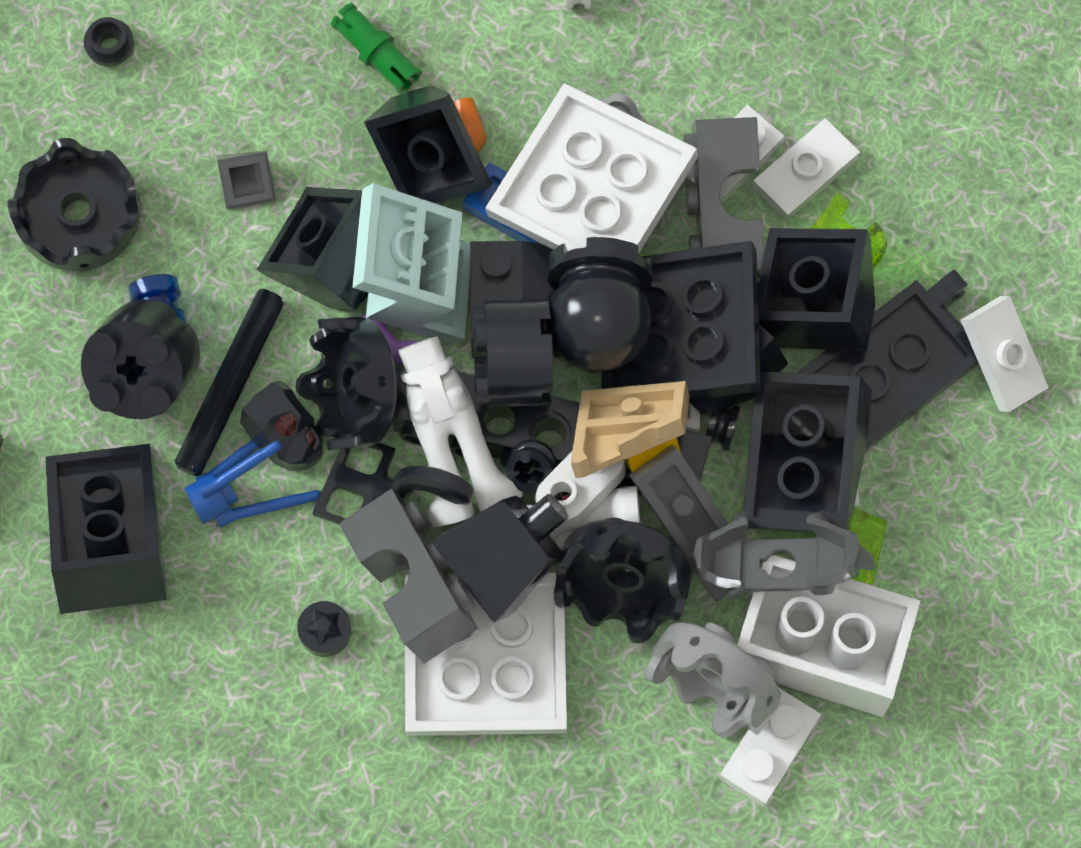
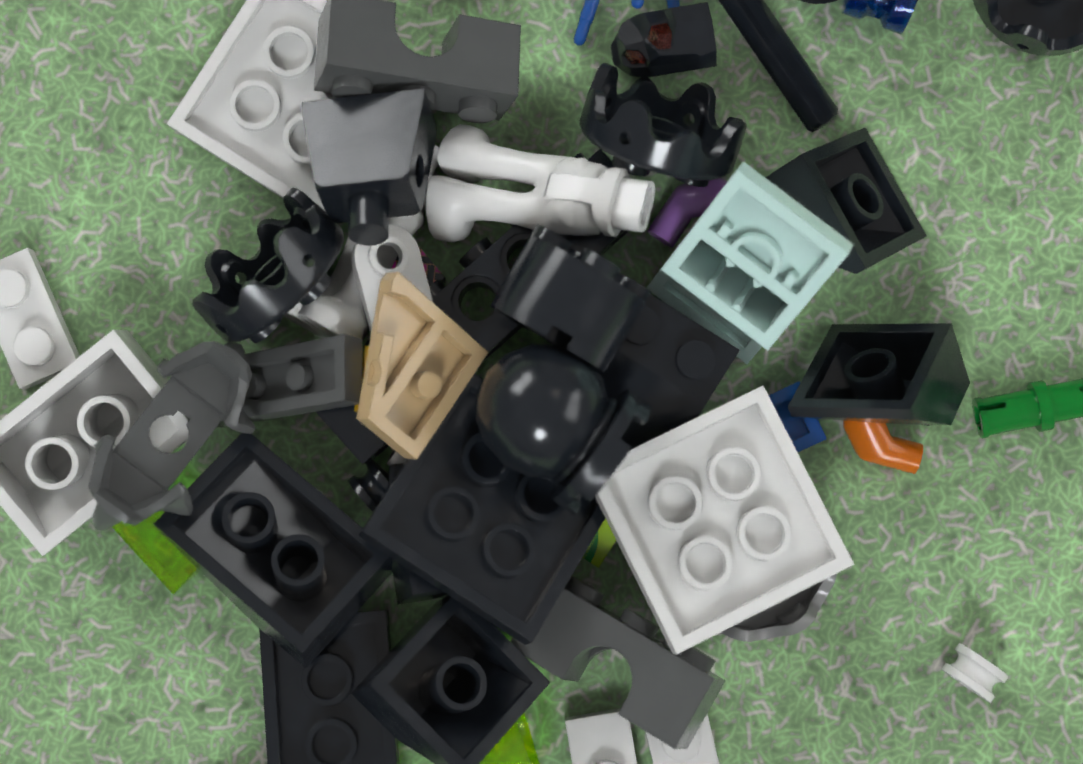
camera: 125 degrees right, 15 degrees up
(246, 178) = (976, 175): dark grey slope -> none
(371, 486) = (540, 103): black piece -> none
(525, 452) = (451, 255): black bush -> none
(713, 667) = (81, 312): light grey plate -> none

